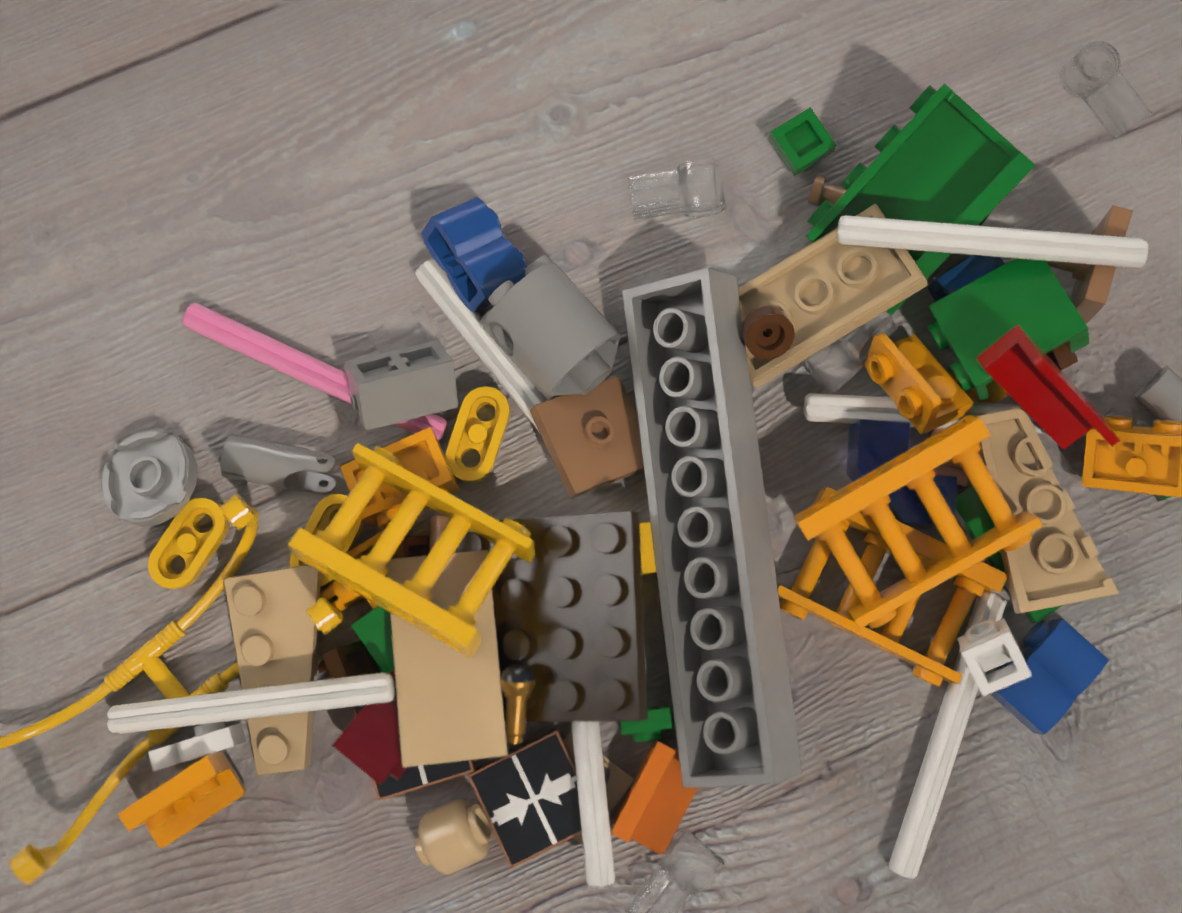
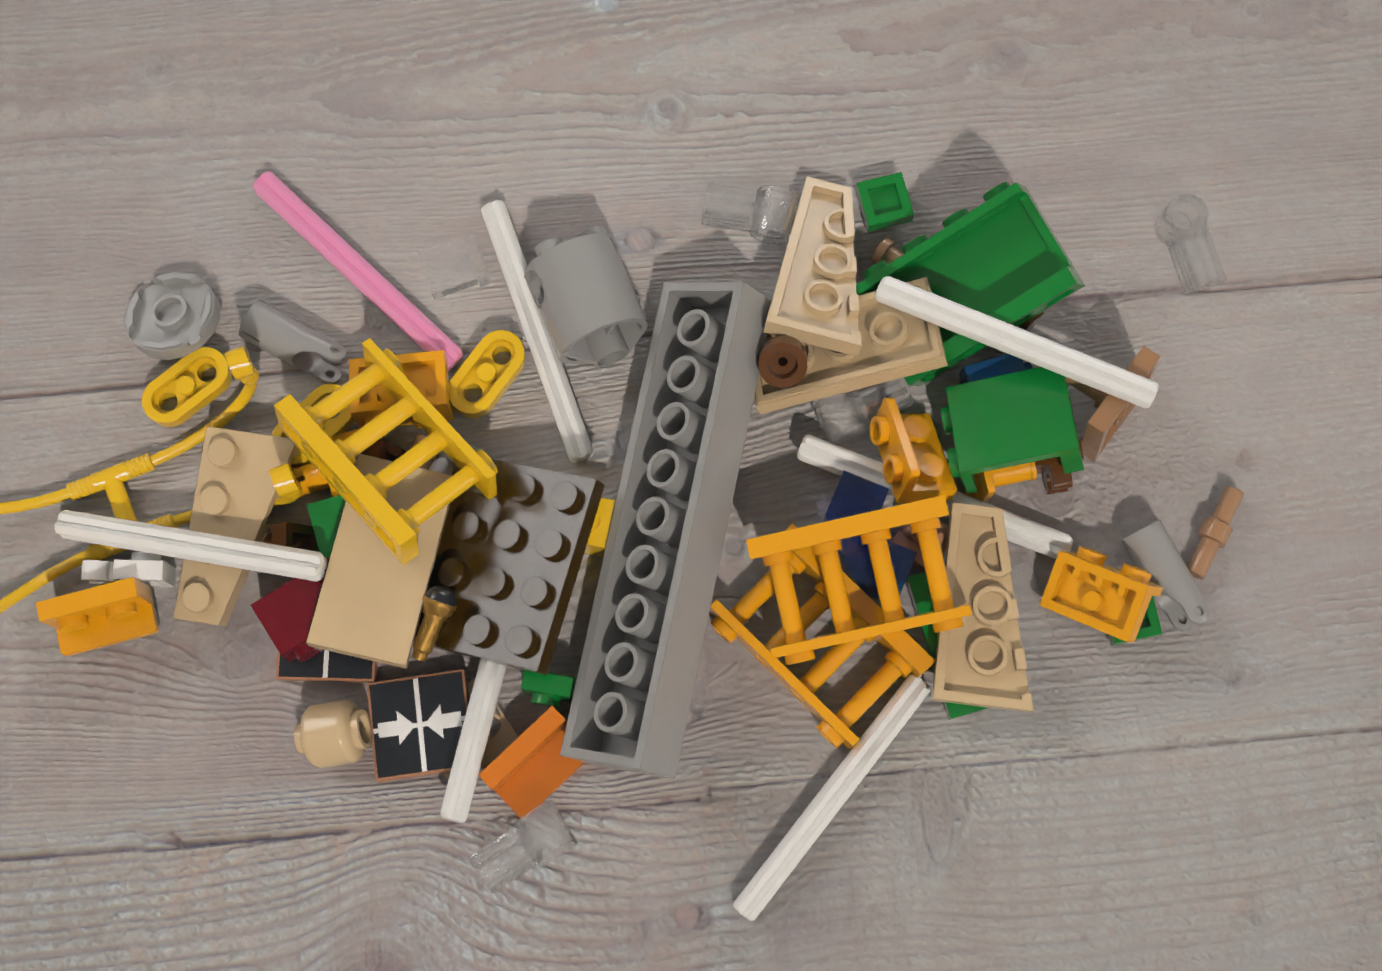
camera: 20 degrees right, 5 degrees down
(402, 384) = (431, 304): light grey hinge -> none
(473, 251) = (539, 202): blue brick -> none
(591, 436) = (589, 408): medium nougat plate -> none
(768, 232) = (818, 274): none -> tan wing
(988, 647) = (891, 727): white brick -> none
(1042, 389) = (1022, 495): red panel -> none
(1060, 669) = (943, 771): blue brick -> none

